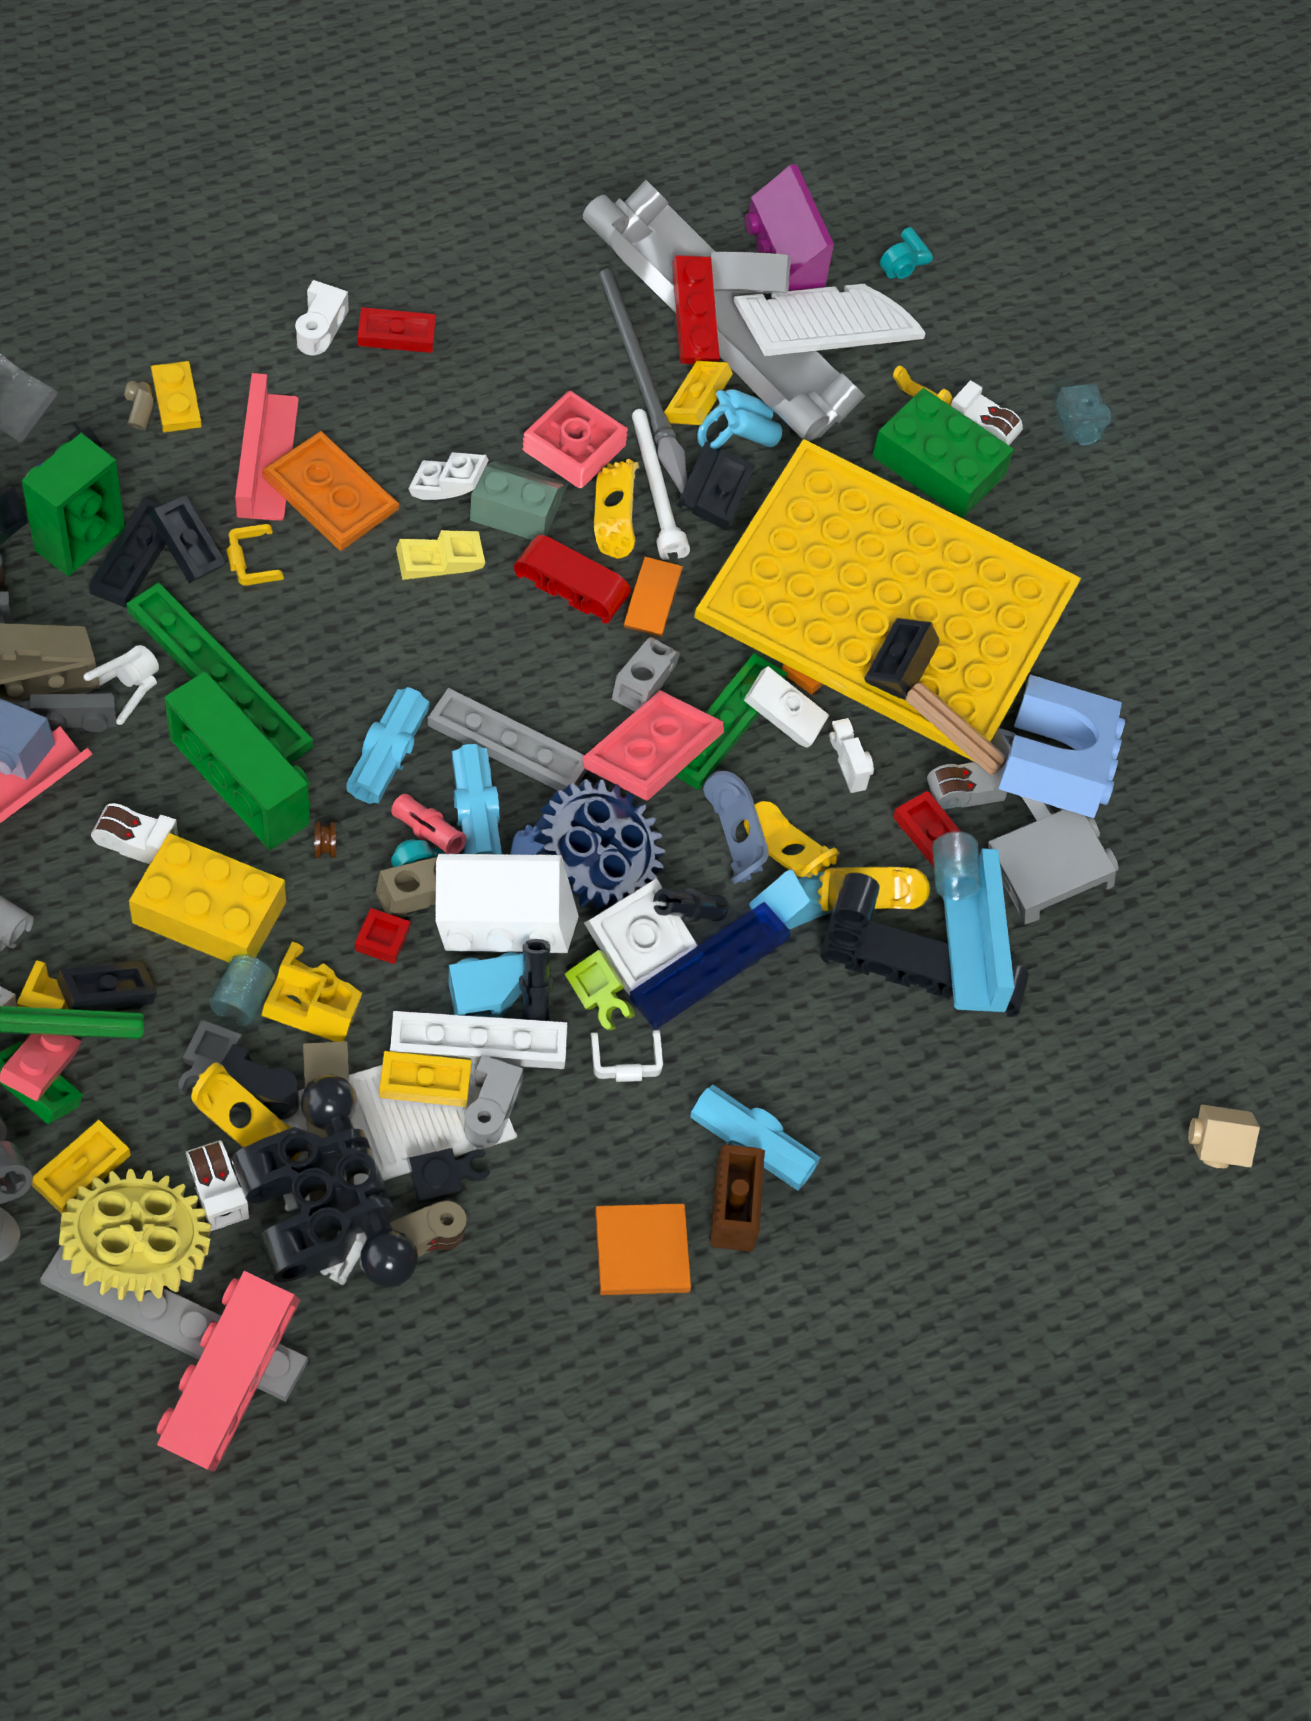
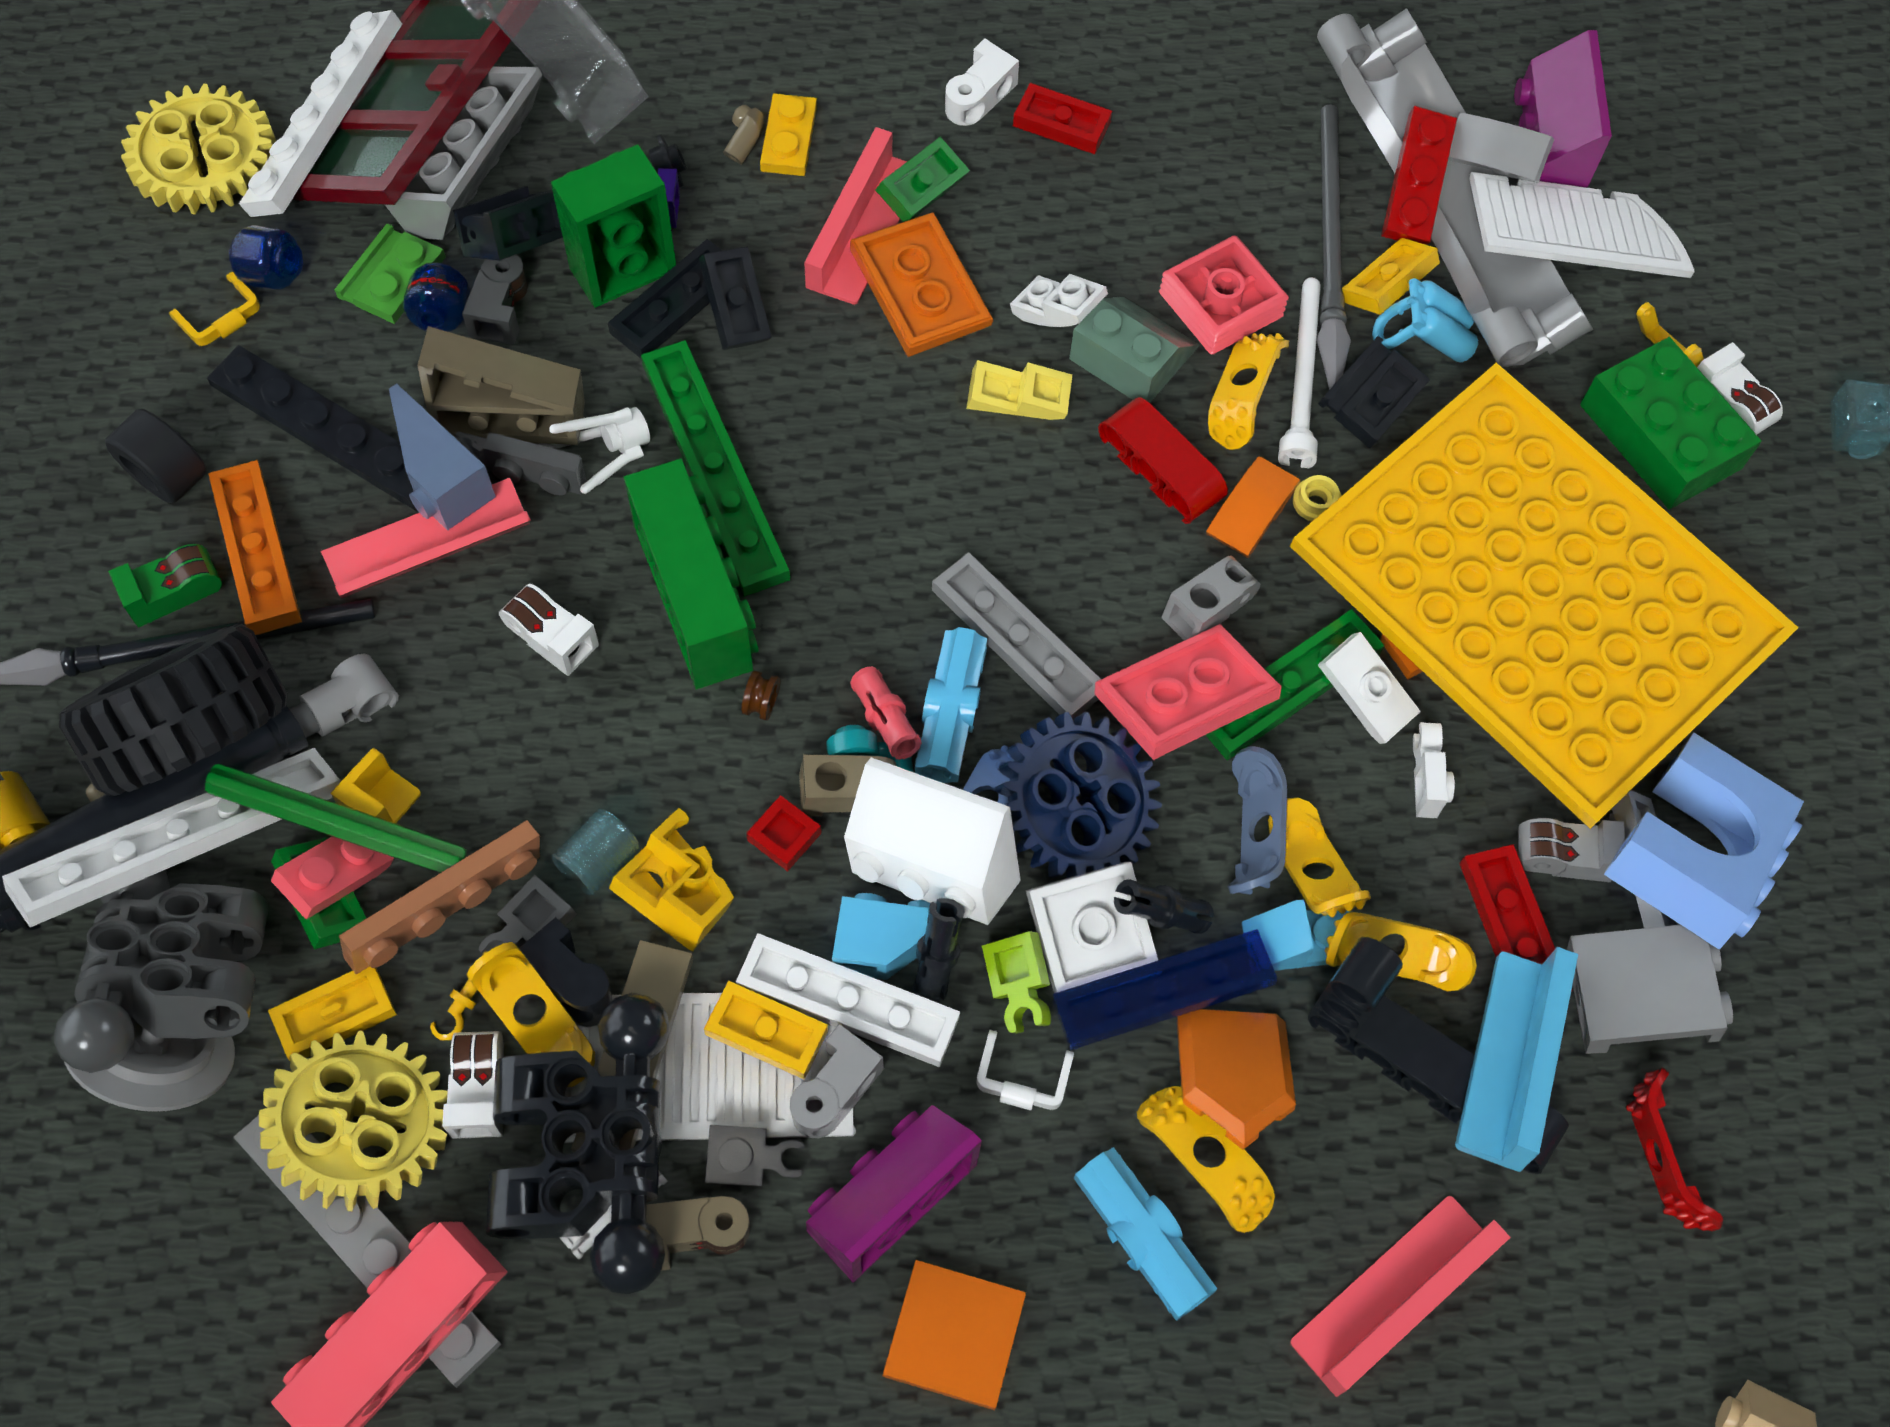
camera: 25 degrees right, 5 degrees up
(107, 986) = (443, 802): black plate -> none
(131, 1062) = (428, 906): none -> nougat plate
(178, 1130) = (461, 1001): none -> yellow hand
(207, 900) = (596, 731): yellow brick -> none
(237, 559) = (787, 333): yellow piece -> none
(303, 407) = (922, 180): none -> green plate
(387, 745) = (874, 602): medium azure piece -> none
(563, 1160) = (892, 1189): none -> magenta slope
(697, 568) = (1314, 486): none -> light yellow plate
(737, 1198) = (1092, 1311): reddish brown brick -> none
(781, 1003) = (1236, 1070): none -> orange tile
(809, 1083) = (1236, 1184): none -> yellow piece
(903, 257) = (1697, 173): teal plate -> none
(903, 657) = (1534, 668): black slope -> none
(945, 1125) = (1395, 1294): none -> coral panel
(956, 728) = (1574, 778): medium nougat axle -> none
(956, 865) = (1517, 958): clear light blue piece -> none
(1117, 999) = (1677, 1198): none -> red piece

